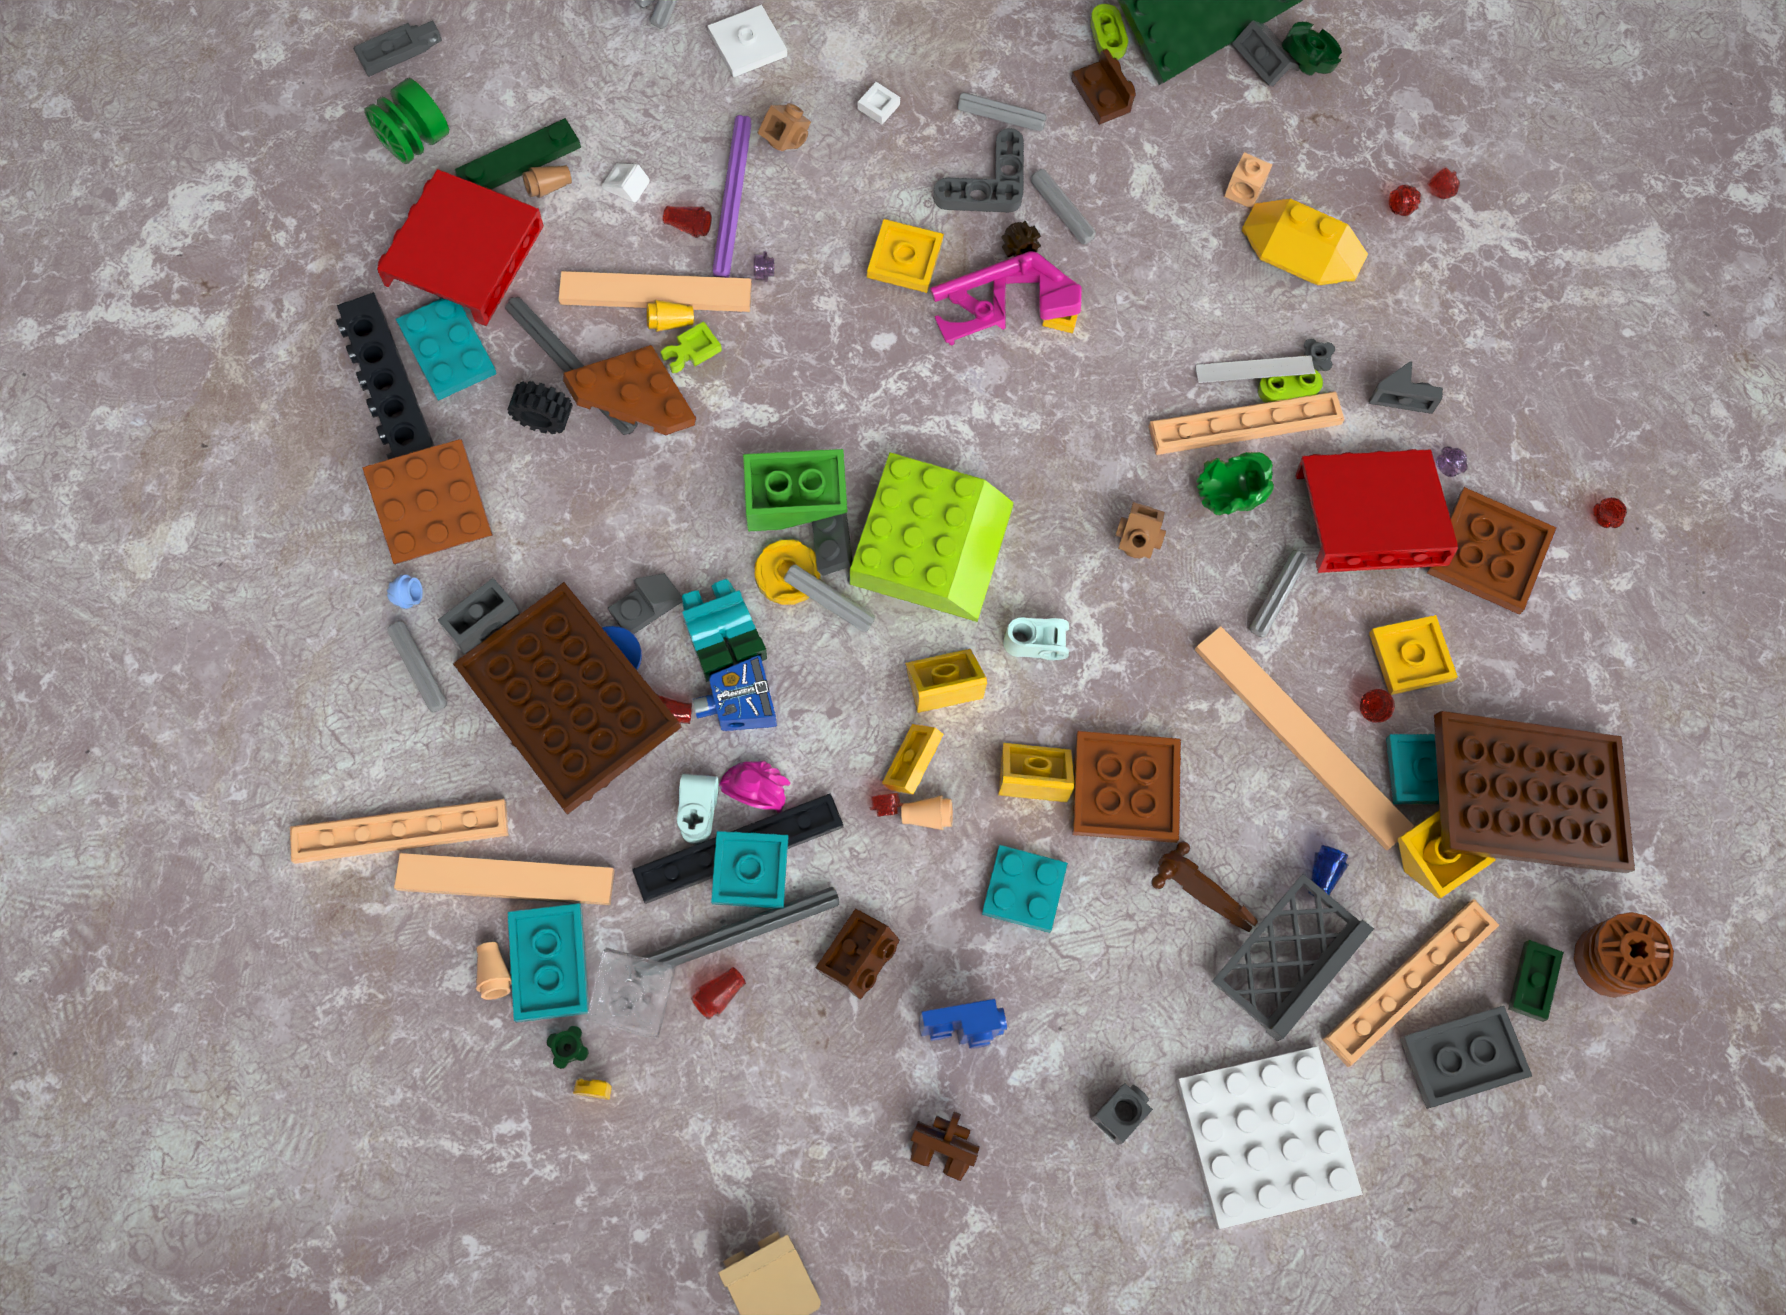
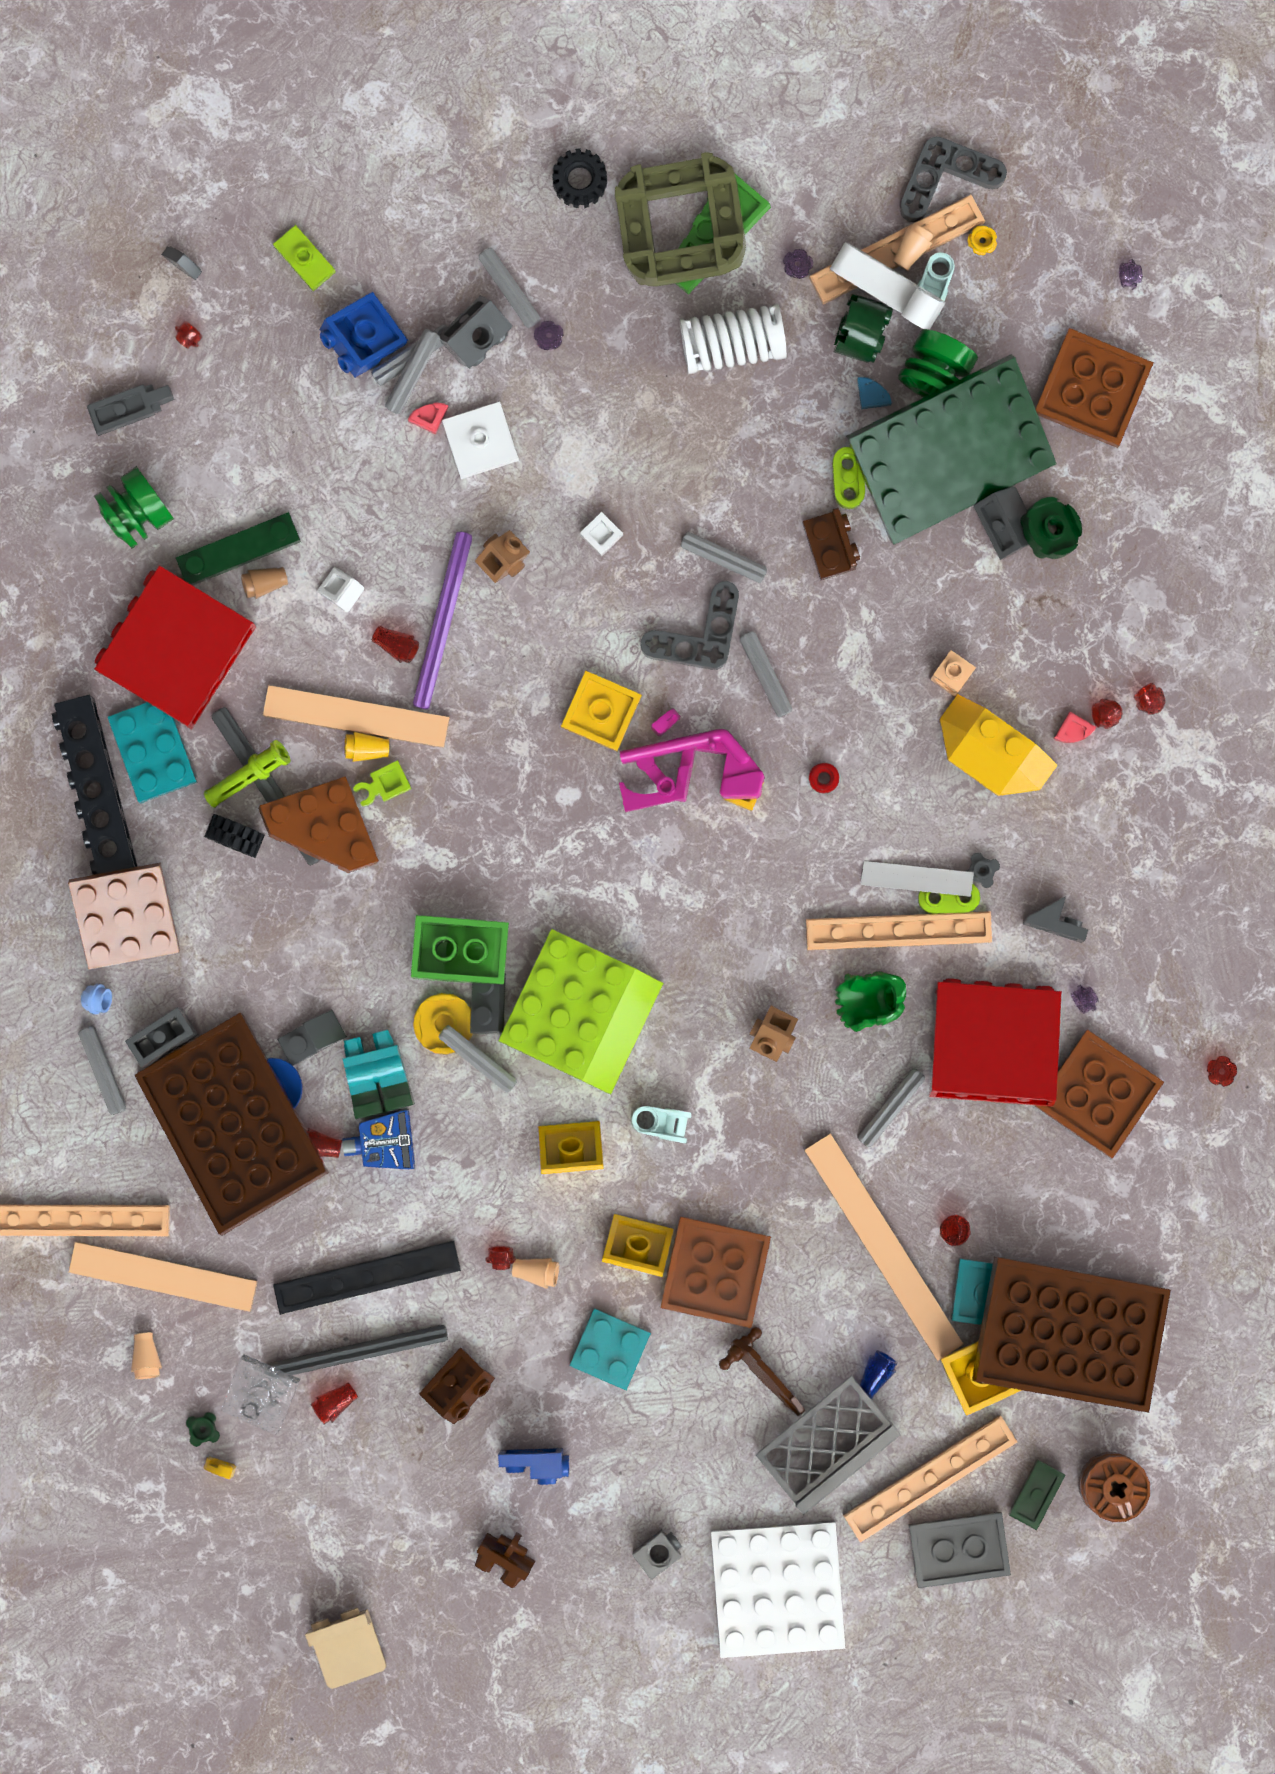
camera: 15 degrees right, 15 degrees up
(548, 963) = (193, 1356): teal plate -> none
(562, 343) = (258, 767): none -> lime pin
(694, 28) = (429, 416): none -> coral tile
(697, 801) = (336, 1230): light aqua piece -> none
(750, 869) = (373, 1303): teal plate -> none
(755, 785) = (388, 1223): dark pink hat -> none
(763, 266) = (462, 705): clear purple plate -> none
(912, 759) = (529, 1220): yellow plate -> none
(970, 259) = (665, 722): none -> dark pink tile
(1020, 239) = (715, 712): dark brown gear -> none
(1143, 284) = (824, 768): none -> red plate
(1376, 221) = (1074, 729): none -> coral tile
(1413, 655) = (1000, 1185): yellow plate -> none

